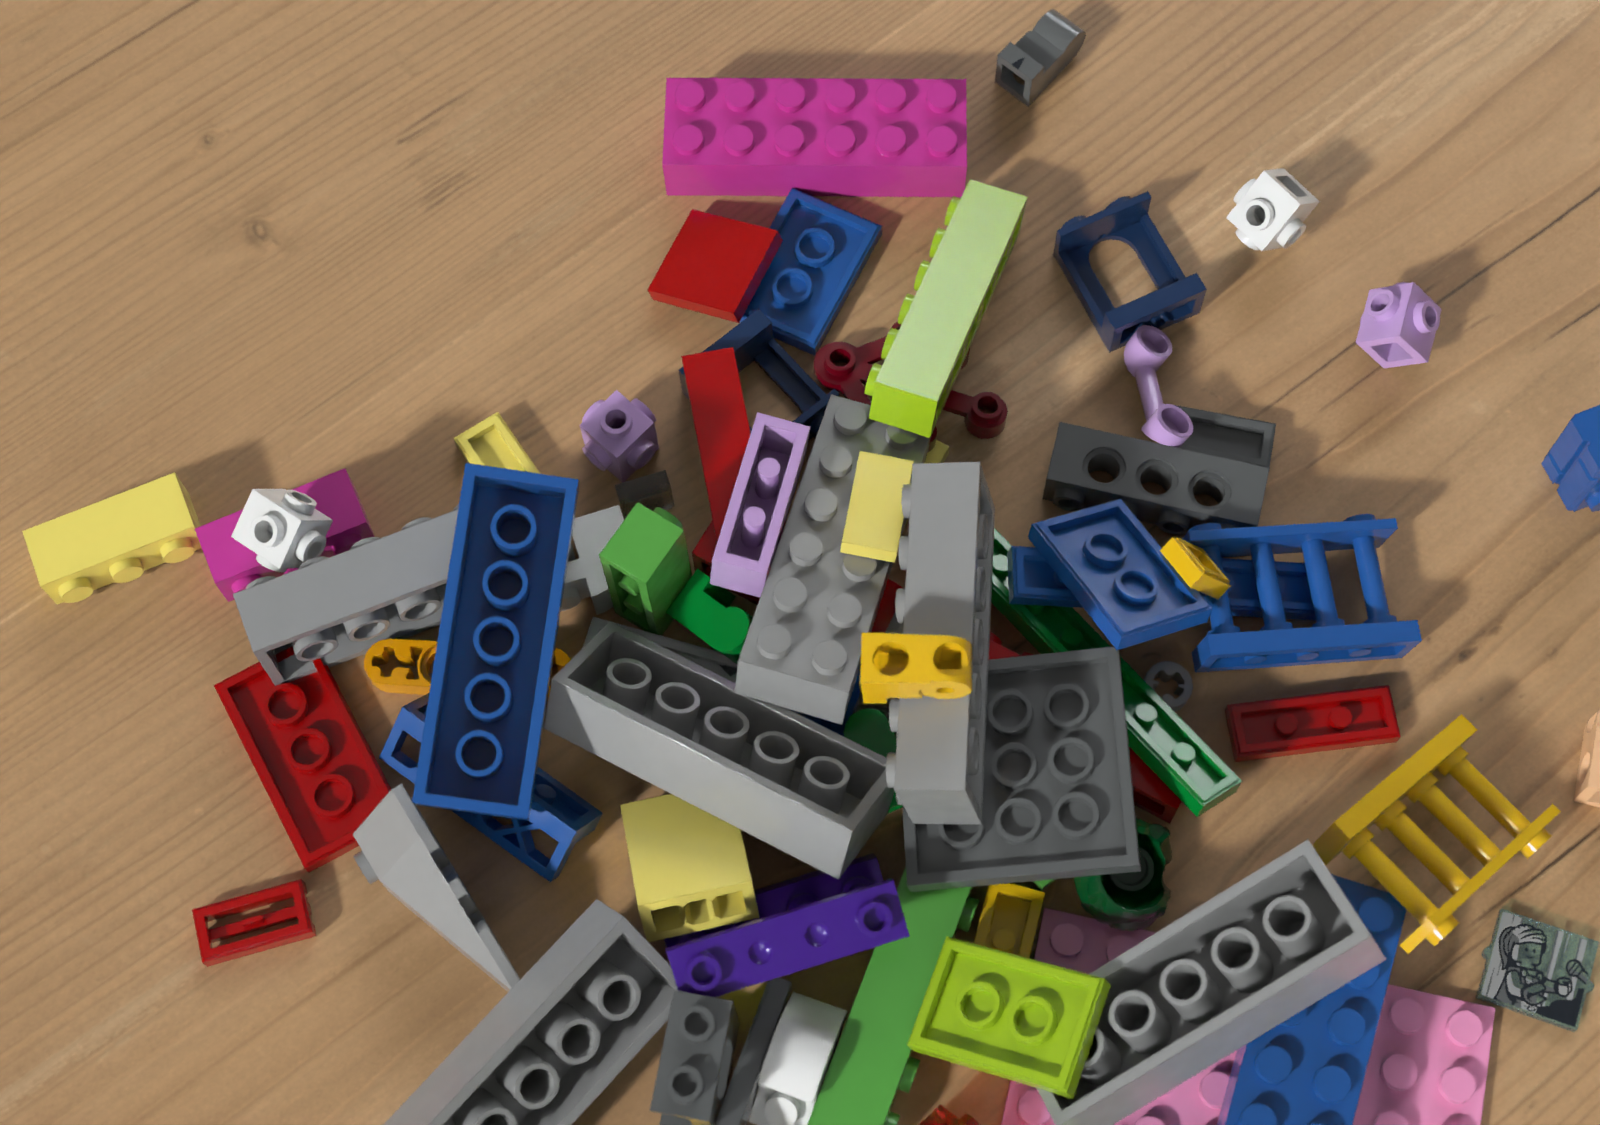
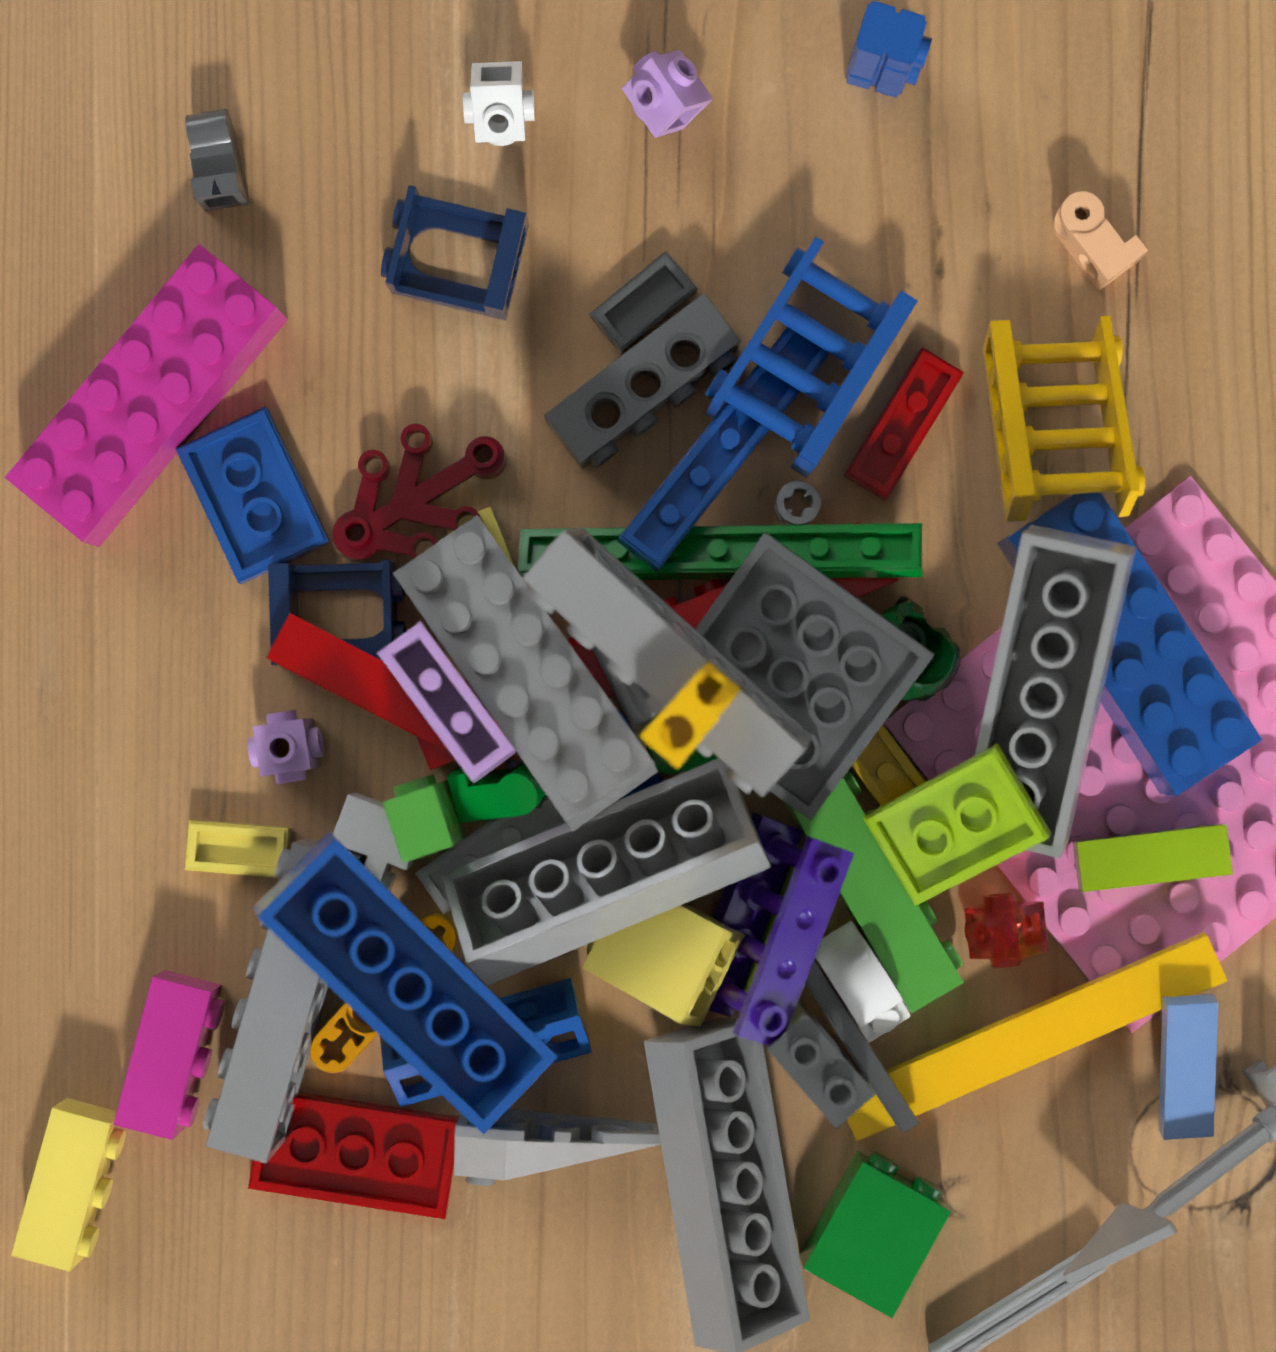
camera: 60 degrees left, 20 degrees up
(259, 943) = (471, 1241): red tile -> none
(282, 528) = (175, 1067): white brick -> none
(649, 490) = (350, 764): clear smoke tile -> none
(715, 265) = (197, 562): red tile -> none
(876, 507) = (521, 623): light yellow tile -> none
(946, 310) = (389, 424): lime brick -> none
(1118, 574) = (703, 479): blue tile -> none
(1143, 357) = (532, 298): lavender bar -> none
(1196, 567) = (743, 419): yellow tile -> none
(1537, 970) = (1188, 423): piece -> none

